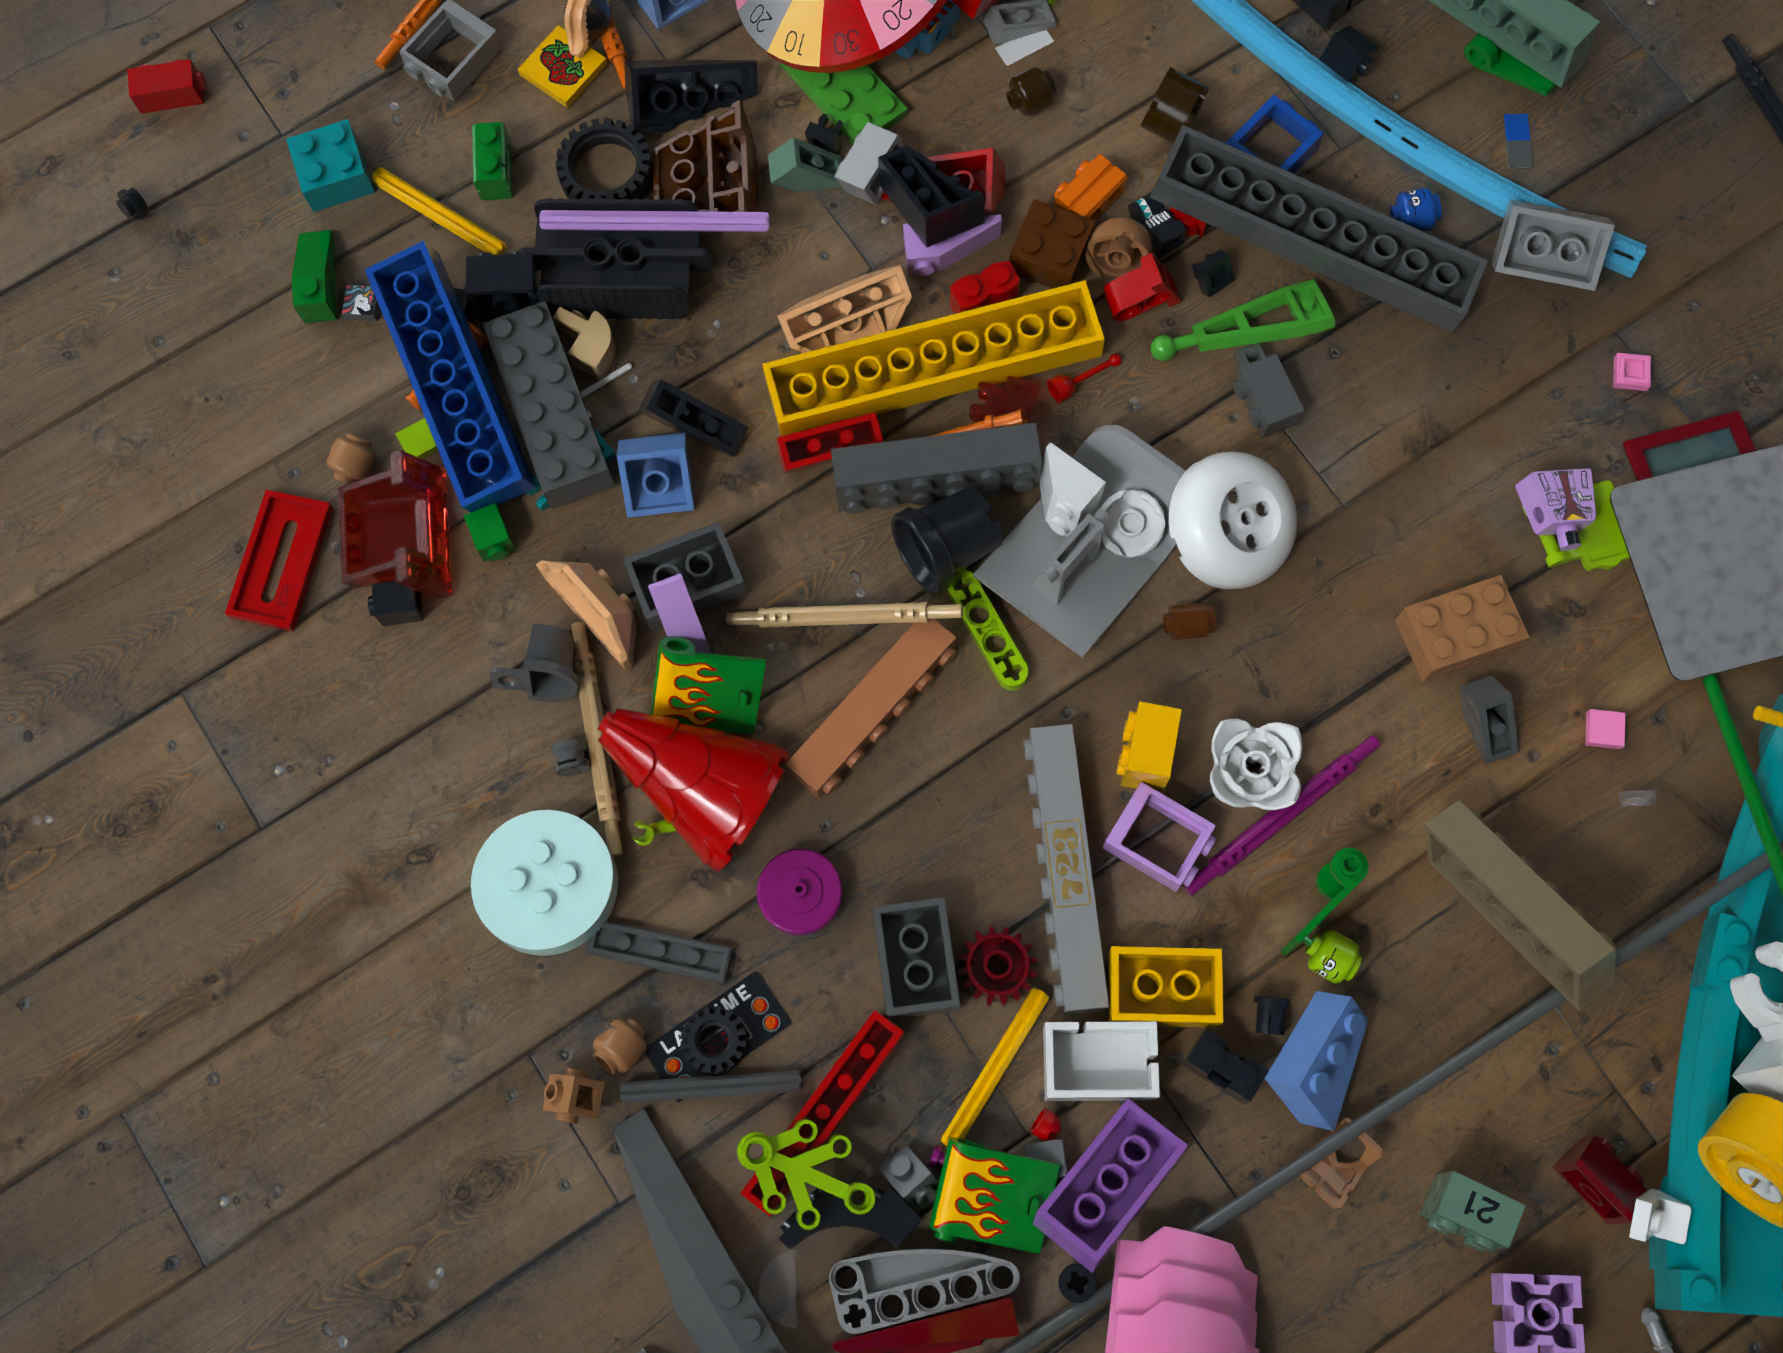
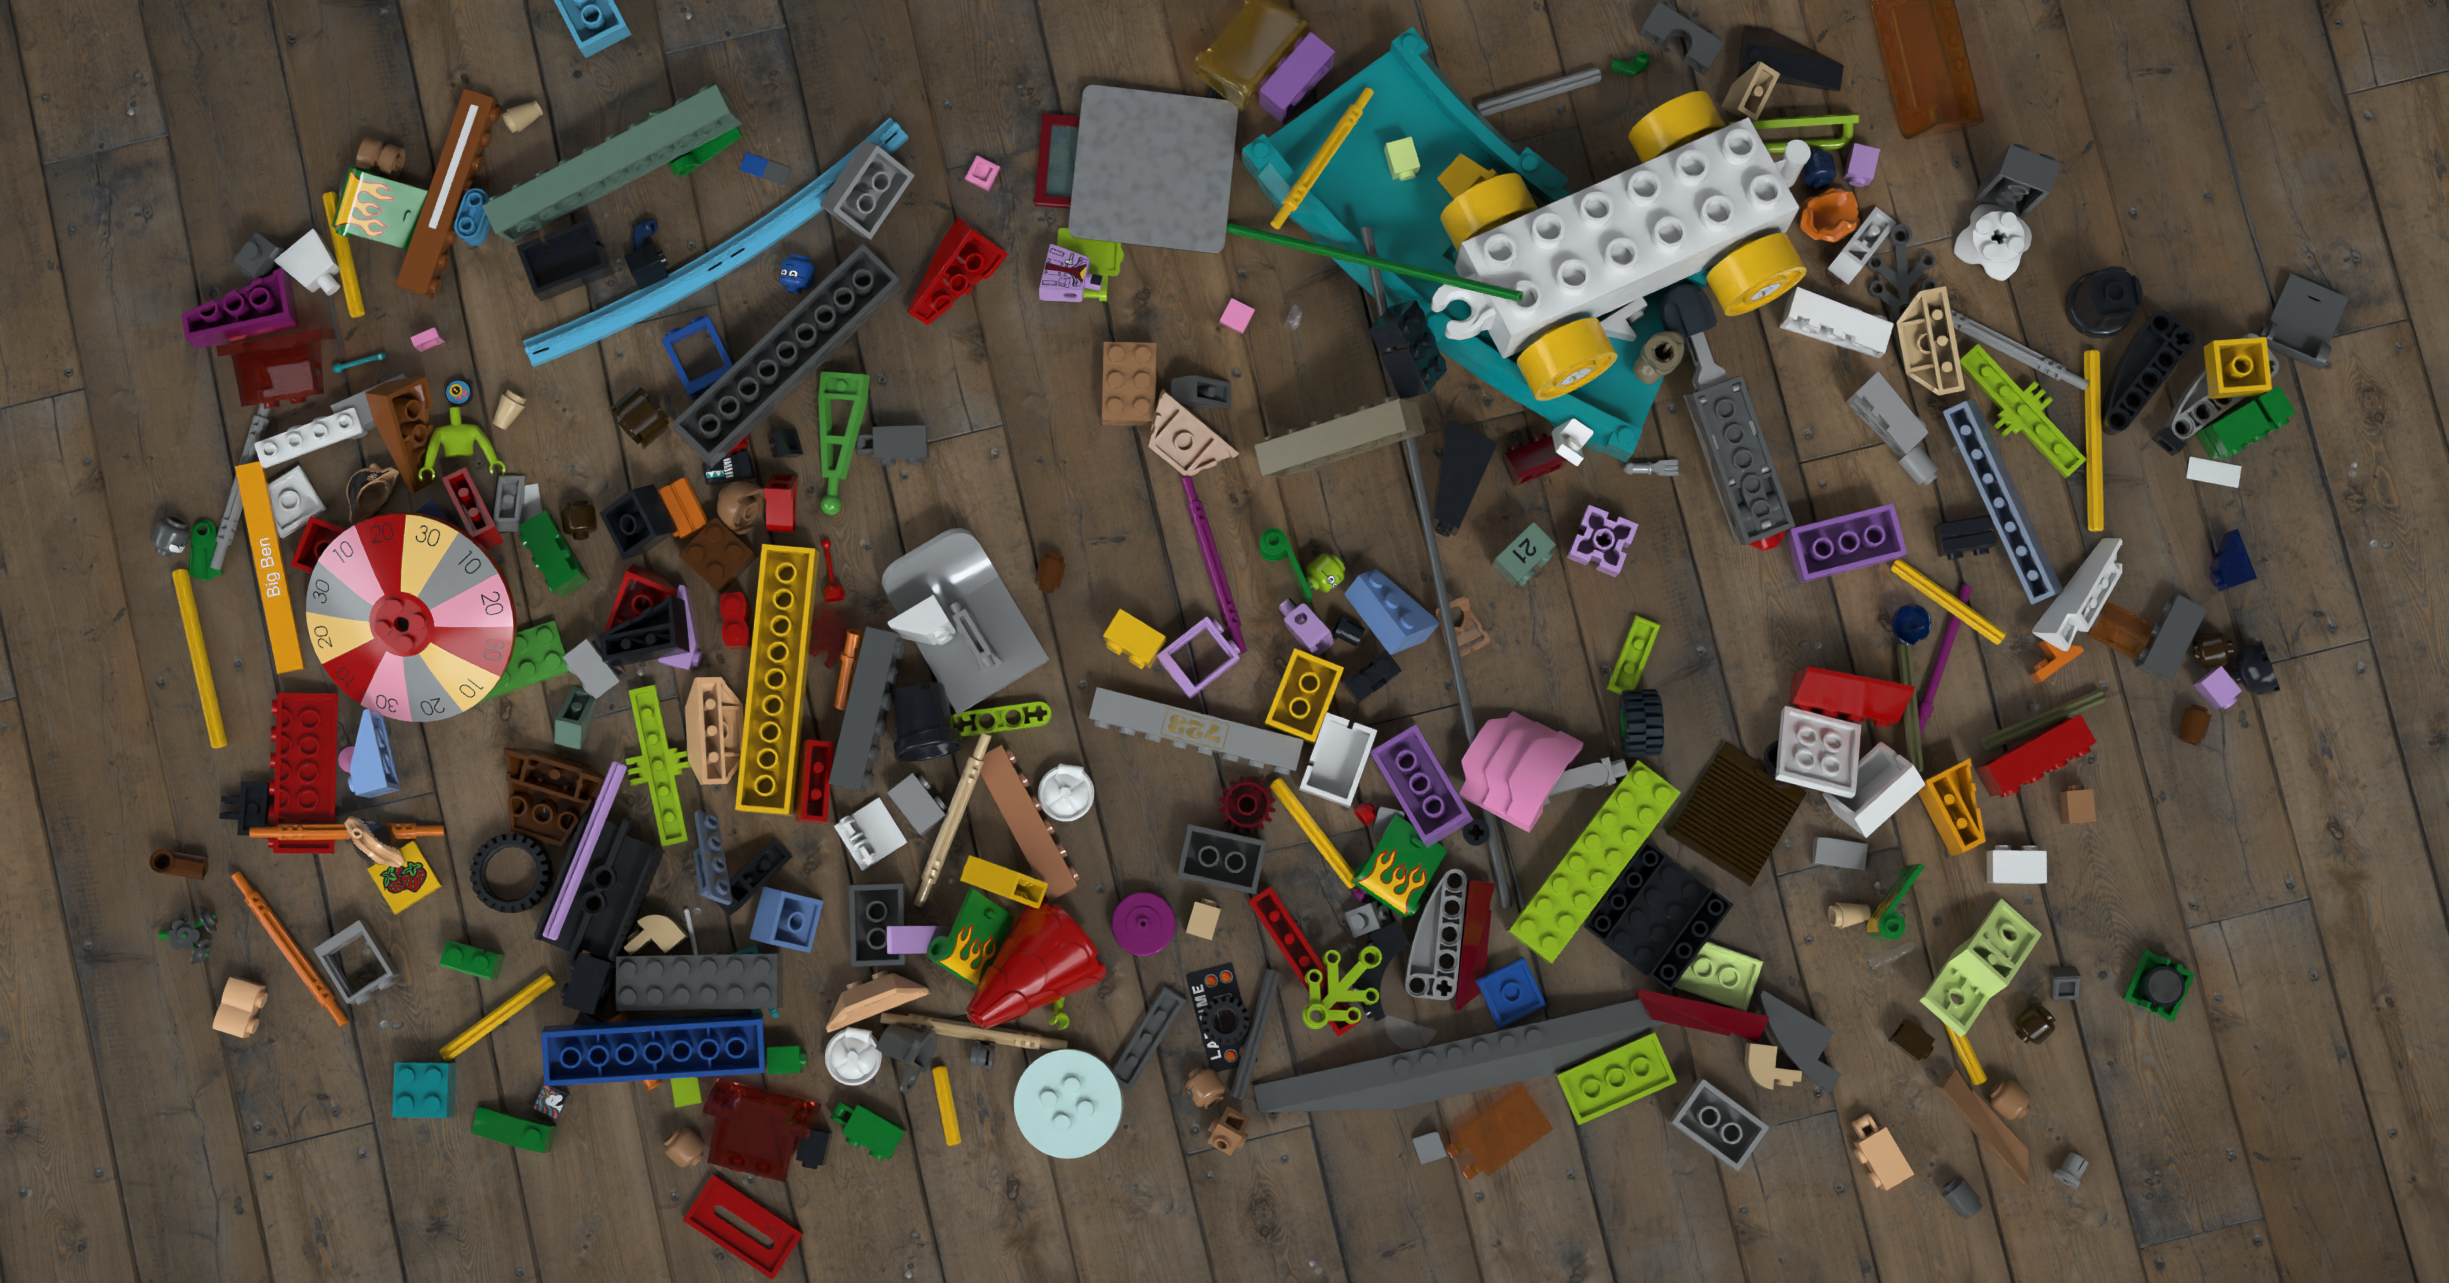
camera: 75 degrees left, 10 degrees up
(131, 203) = (392, 1259): black plate -> none
(166, 86) = (296, 1202): red brick -> none
(436, 658) = (869, 1130): none -> green brick
(496, 738) = (946, 1105): none -> yellow axle
(517, 604) = (853, 1056): none -> white piece
(677, 91) = (465, 796): black wedge -> none
(696, 360) = (710, 860): none -> sand blue bracket
(784, 273) = (658, 765): none -> lime hinge
(787, 698) = (1004, 881): none -> yellow brick
(792, 532) = (870, 834): none -> white hinge
(825, 138) = (554, 693): black tile -> none
(832, 965) = (1203, 919): none -> tan brick
(848, 570) = (917, 803): none -> light grey brick
(927, 738) = (1066, 792): none -> white piece
(979, 78) = (552, 554): none -> green wedge
(1055, 145) = (638, 521): none -> black brick
(1133, 524) = (962, 583): white tile -> none
(1203, 514) = (972, 530): white brick -> none
(1253, 958) = (1312, 634): none -> lavender torso
(1273, 746) = (1169, 550): white brick -> none
(1387, 41) = (643, 232): none -> dark blue arm
(1425, 718) = (1185, 439): none -> wing
(1511, 383) = (957, 266): none -> red wedge
(1545, 1084) = (1459, 474): none -> black slope
(1671, 965) = (1419, 362): none -> black piece

